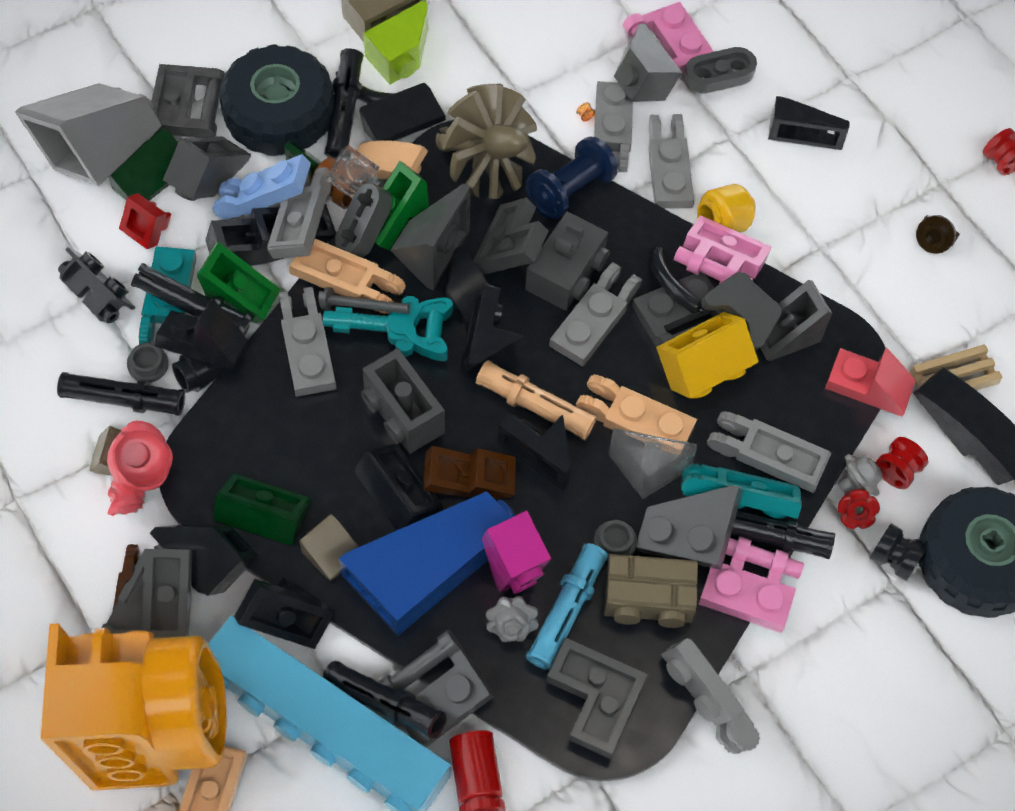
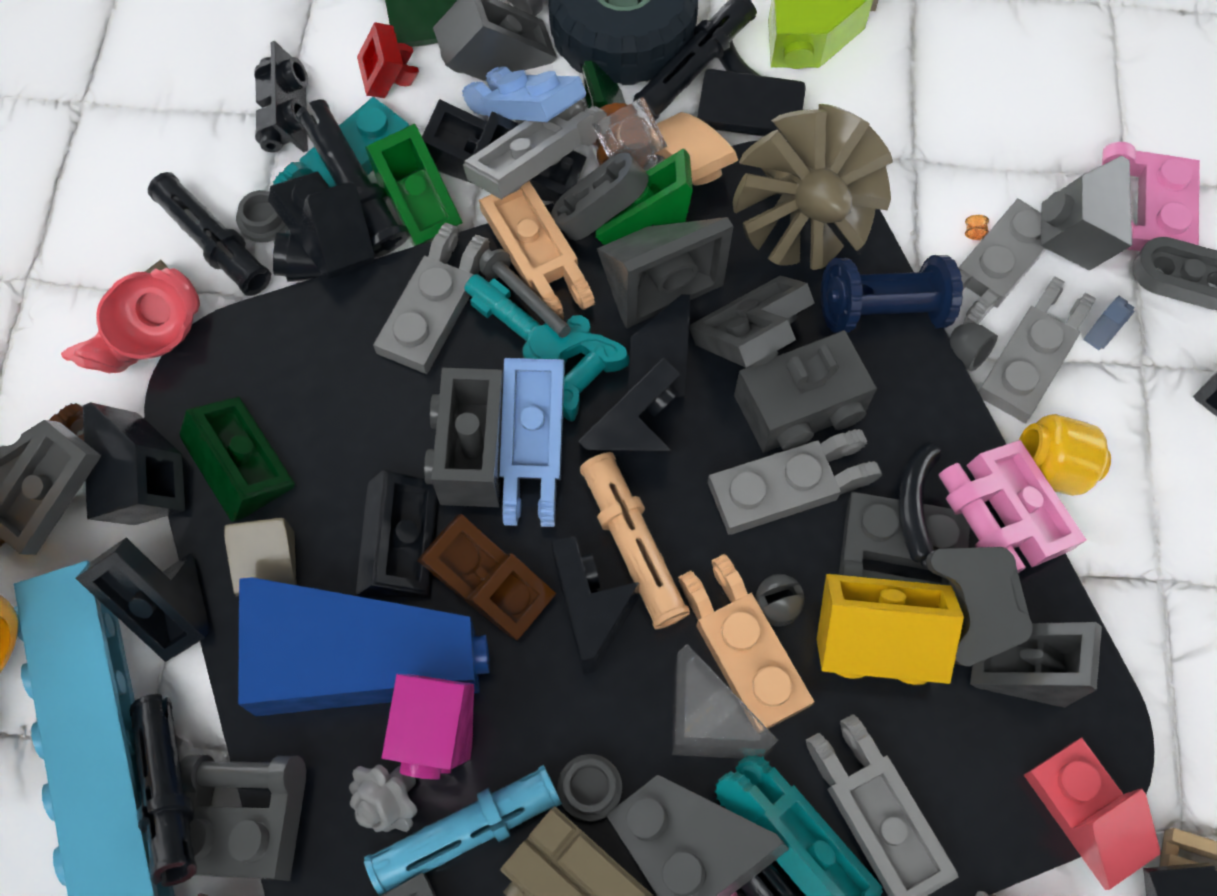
camera: 40 degrees right, 5 degrees up
(440, 375) = (531, 433): none -> light blue hinge
(633, 179) = (972, 344): none -> dark grey hinge
(646, 382) = (786, 609): none -> dark grey hinge
(698, 124) = (1109, 323): none -> sand blue tile

